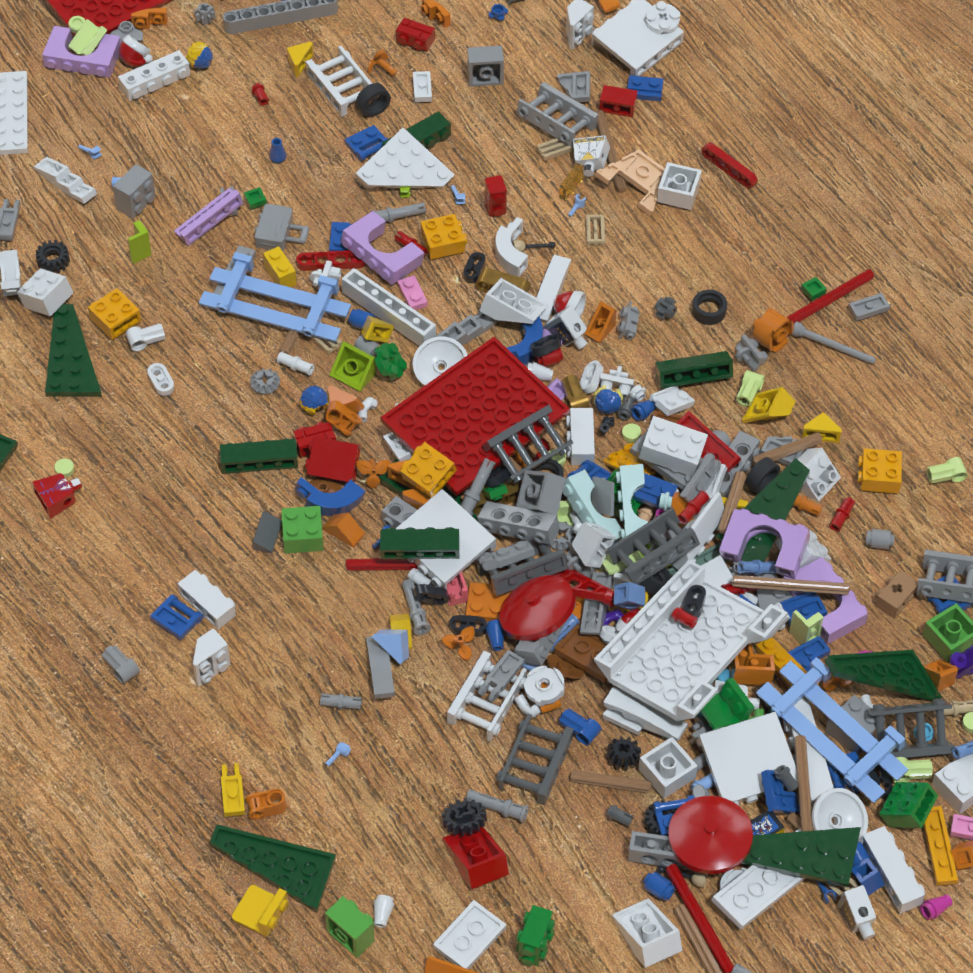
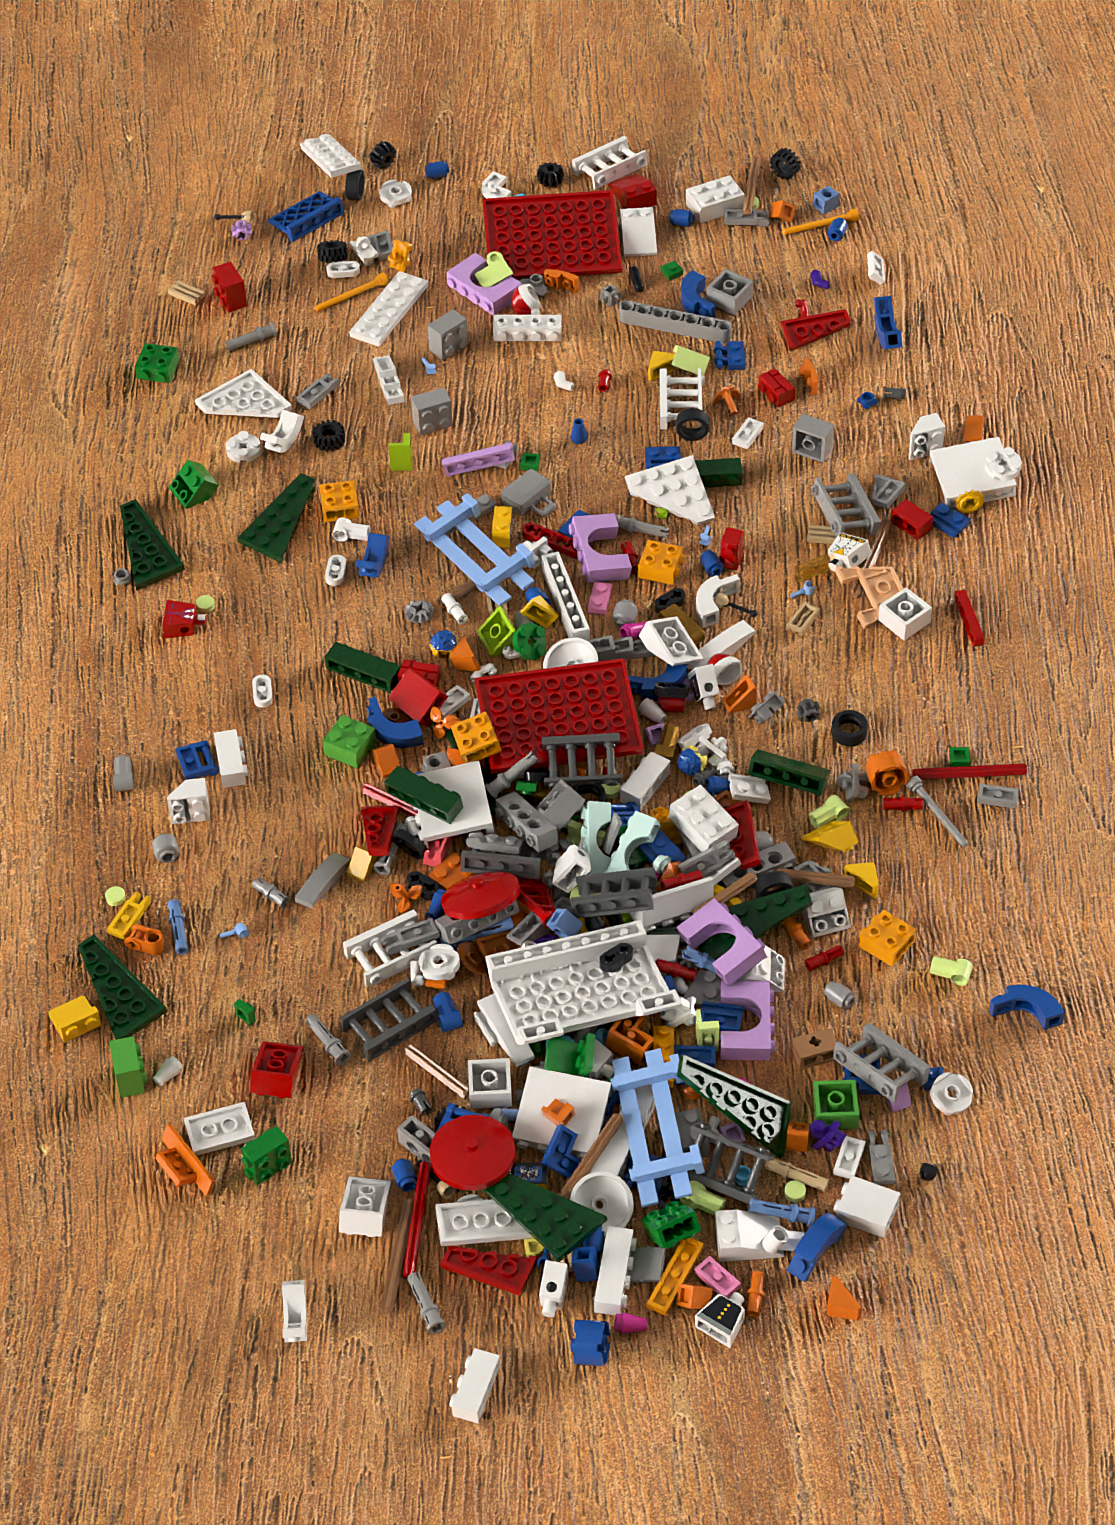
camera: 35 degrees right, 5 degrees down
(45, 292) = (297, 458): white brick -> none
(91, 113) = (447, 334): none -> light grey brick
(186, 524) = (262, 691): none -> white plate
(187, 349) = (375, 555): none -> blue arch
(199, 55) = (576, 326): piece -> none
(203, 779) = (115, 896): none -> yellowish green tile
(217, 711) = (165, 848): none -> light grey head
(222, 112) = (561, 382): none -> white arm
(267, 533) = (317, 730): dark grey slope -> none
(268, 761) = (176, 920): none -> medium blue pin
(323, 42) = (689, 360): none -> yellowish green panel
(345, 419) = (452, 666): orange piece -> none
(353, 19) = (735, 355): none -> blue plate
(366, 441) = (456, 698): none -> white plate
(377, 379) = (510, 653): none -> white arm
(393, 593) = (379, 828): none -> red wing
(394, 642) = (346, 867): light blue slope -> none
(408, 820) = (245, 1011): none -> green plate
(447, 296) = (624, 612): none -> light grey head
(464, 817) = (290, 1033): black gear -> none
(465, 308) = (632, 629): none -> dark pink cone
(484, 217) = (711, 563): none -> blue brick
(606, 424) = (675, 781): black arm -> none
(623, 753) = (464, 1050): black gear -> none
(654, 63) = (969, 506): none -> yellow gear
(684, 617) = (592, 961): red pin -> none
(752, 761) = (558, 1112): none -> orange panel
(783, 773) = (576, 1141): dark grey pin -> none
(790, 584) = (717, 988): medium nougat axle -> none
(800, 351) = (902, 803): none -> red pin
(801, 922) = (494, 1269): none -> red wing
(808, 888) = (533, 1247): none -> light yellow tile
(887, 698) = (733, 1131): none -> lavender slope
(913, 847) = (647, 1264): none -> light grey piece
(925, 940) = (590, 1342): none -> blue brick

